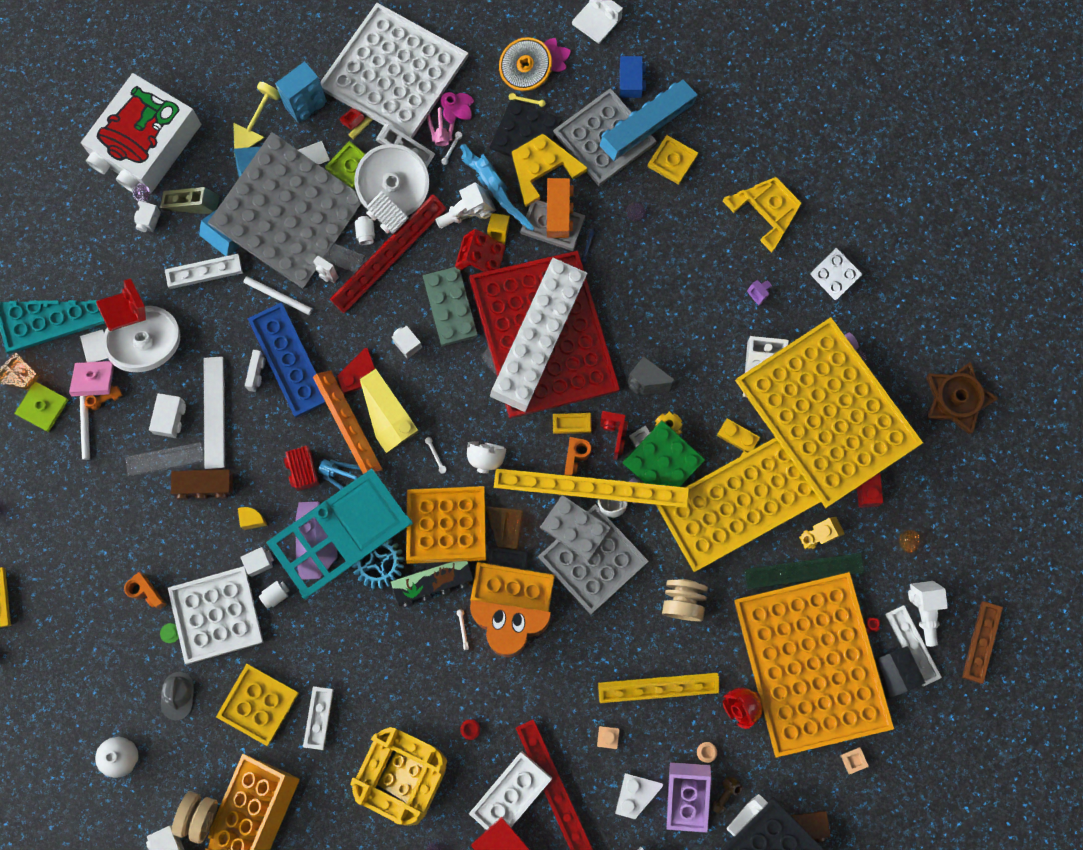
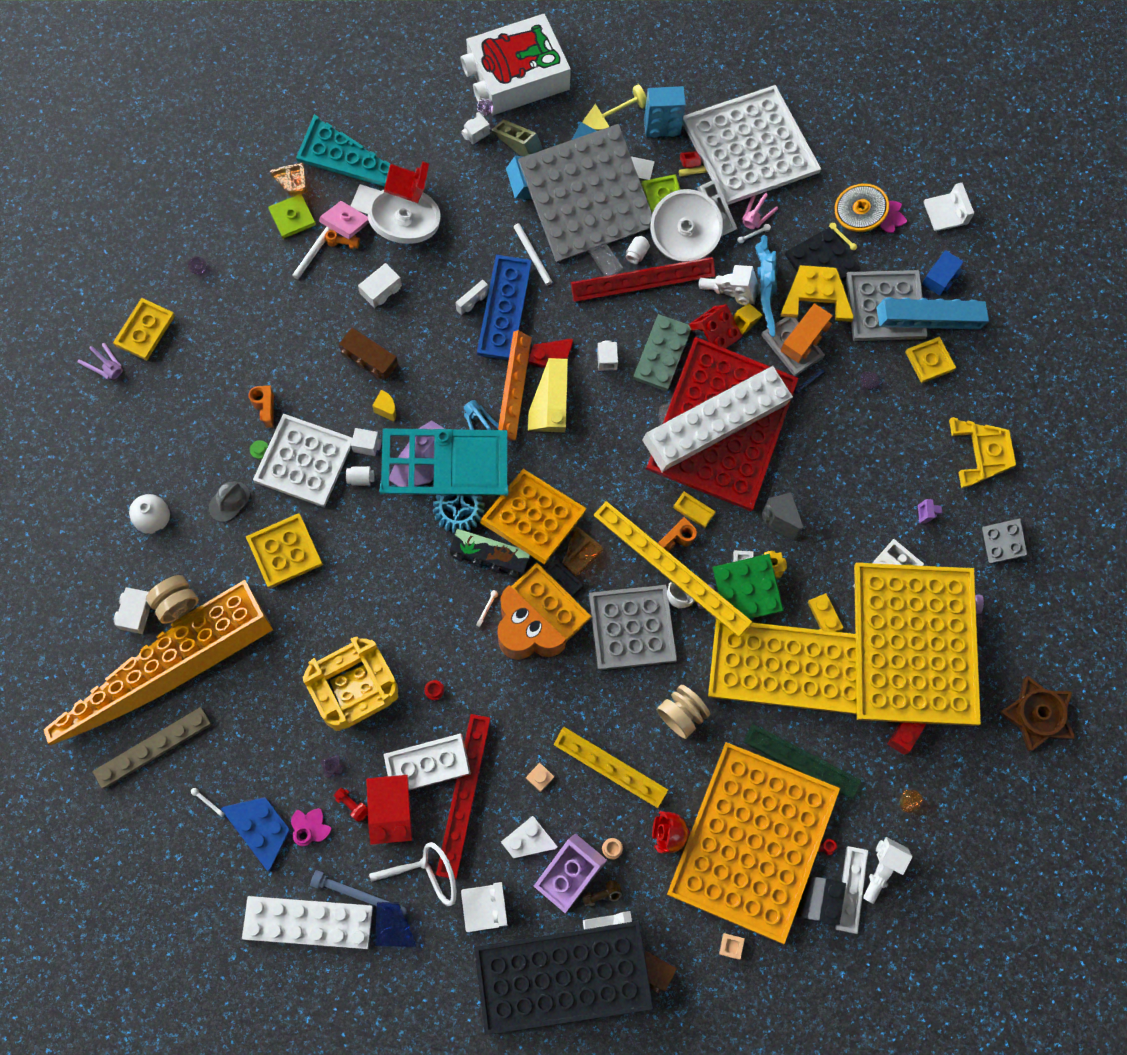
camera: 30 degrees right, 5 degrees down
(164, 459) = (354, 318): clear tile -> none
(203, 271) = (489, 197): white plate -> none
(214, 414) = (417, 308): white tile -> none
(302, 468) = (453, 395): red brick -> none
(318, 718) = (322, 594): white plate -> none
(325, 269) = (584, 257): white plate -> none
(387, 213) = (664, 246): white brick -> none
(442, 469) = (563, 473): white hinge -> none
(458, 108) = (781, 206): dark pink plate -> none
(485, 456) = (604, 485): white cylinder -> none
(575, 527) = (636, 591): light grey plate -> none
(612, 422) = (729, 531): red bracket -> none
(823, 533) = (842, 741): yellow brick -> none
(982, 642) = (914, 930): dark orange plate -> none

